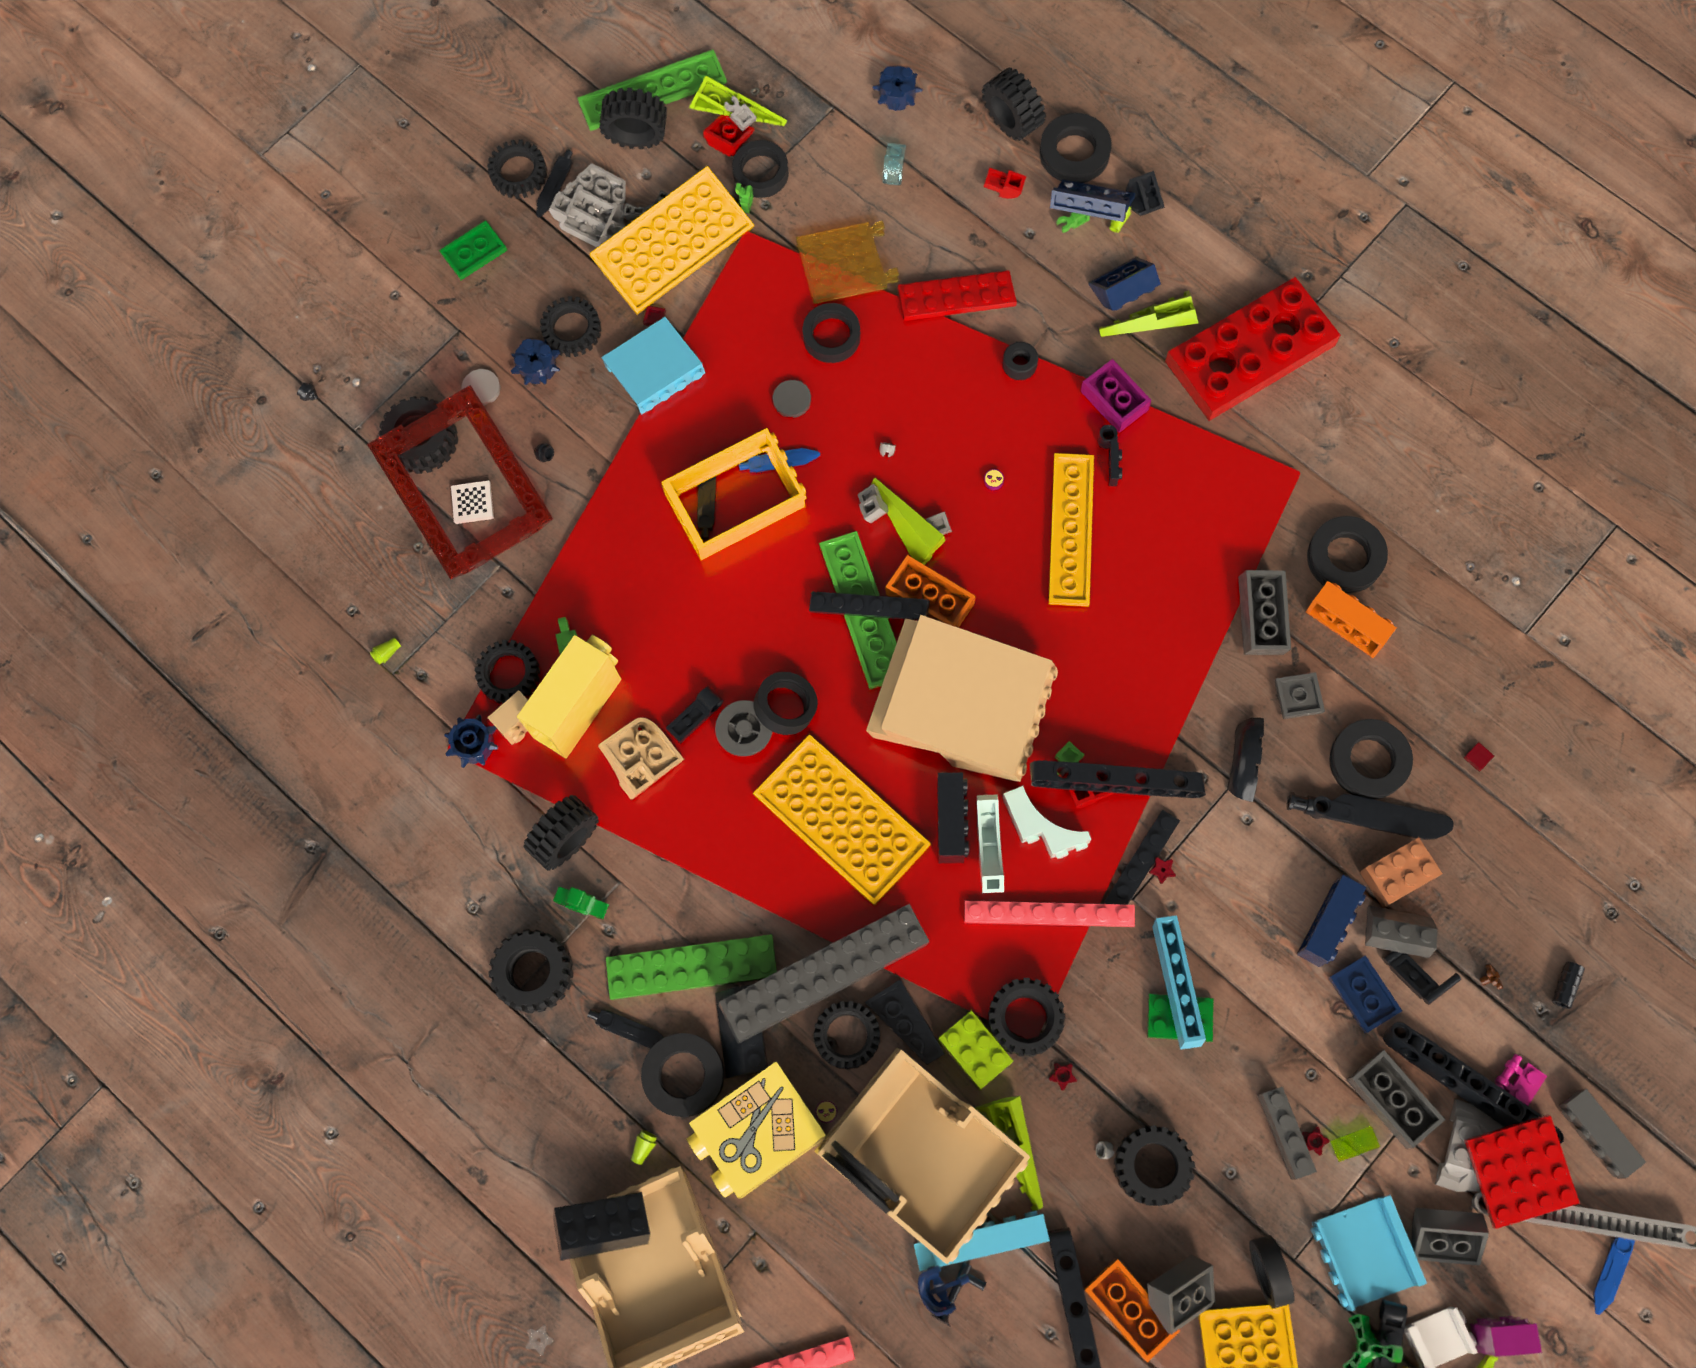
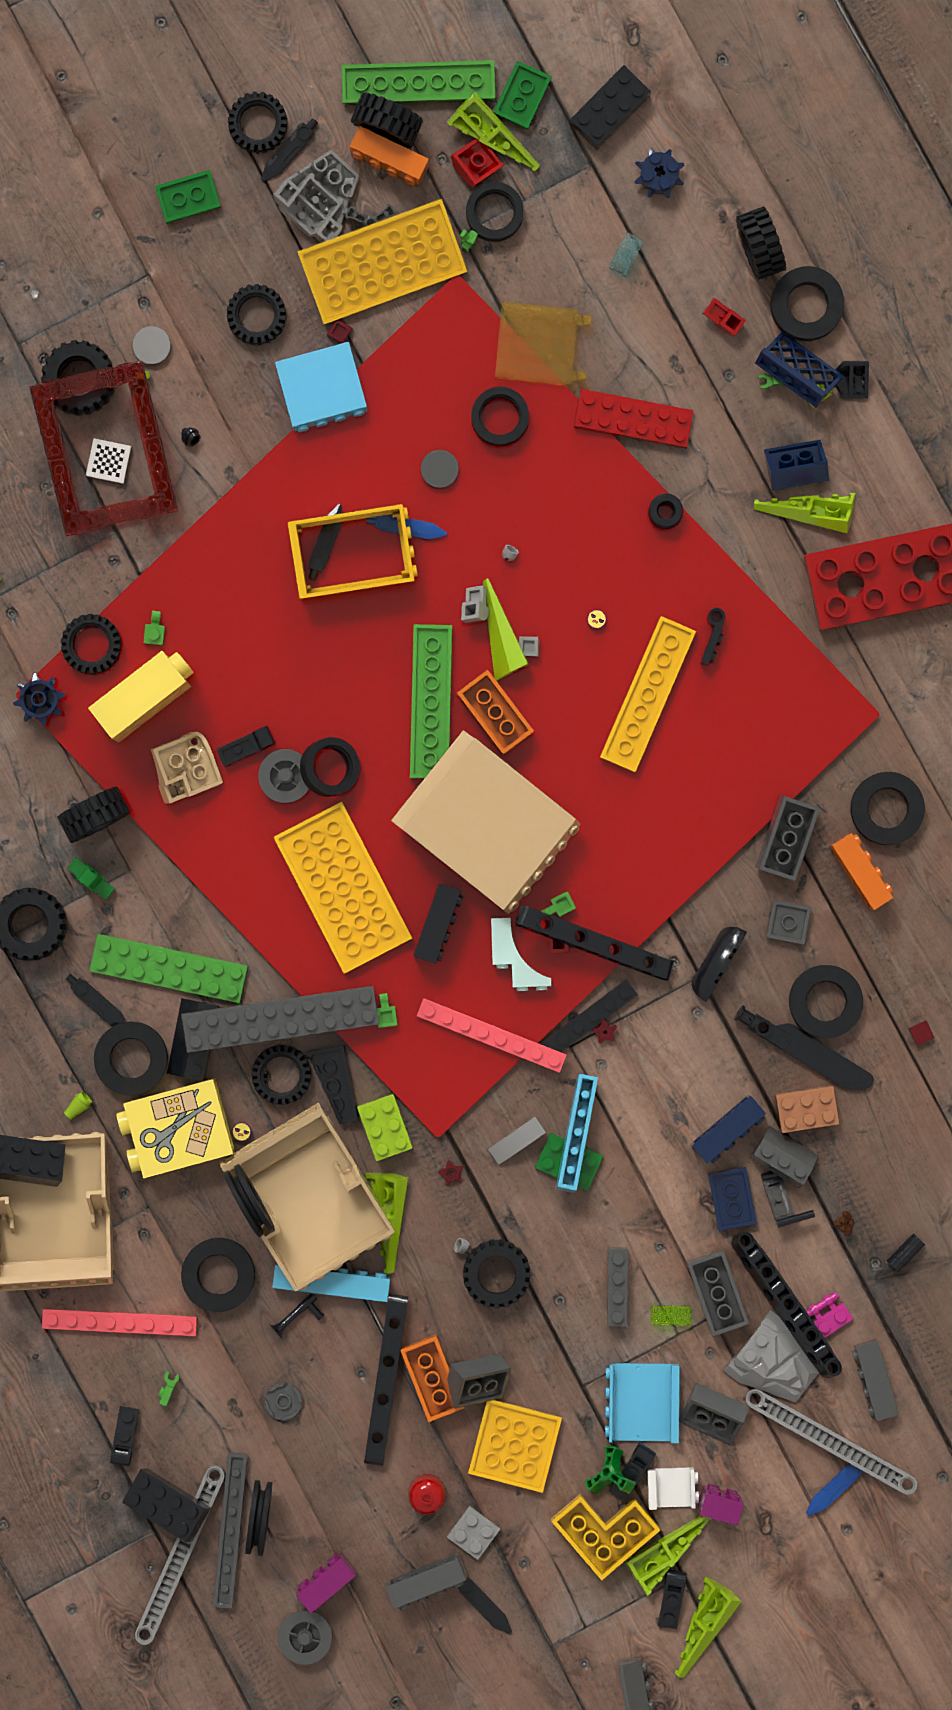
camera: 15 degrees right, 15 degrees up
(506, 718) = (84, 693): tan brick -> none
(535, 361) = (211, 352): dark blue brick -> none
(646, 152) = (389, 156): none -> orange brick
(741, 115) = (495, 150): light grey plate -> none
(749, 69) = (522, 95): none -> green plate
(824, 1286) = (195, 1290): none -> black tyre
(832, 51) = (610, 107): none -> black brick
(868, 605) = (436, 704): black plate -> none
(933, 930) = (386, 1013): none -> bright green plate
(937, 1308) = (271, 1308): dark blue helmet -> none
(989, 844) = (461, 959): light aqua arch -> none
(1042, 994) = (428, 1140): black tyre -> none
(1115, 395) = (738, 581): magenta brick -> none
(1118, 1014) = (517, 1140): none -> light grey slope
(1271, 1271) = (556, 1389): black tyre -> none
(1321, 1141) = (644, 1302): dark red plate -> none
(1521, 1171) = (792, 1385): red plate -> none

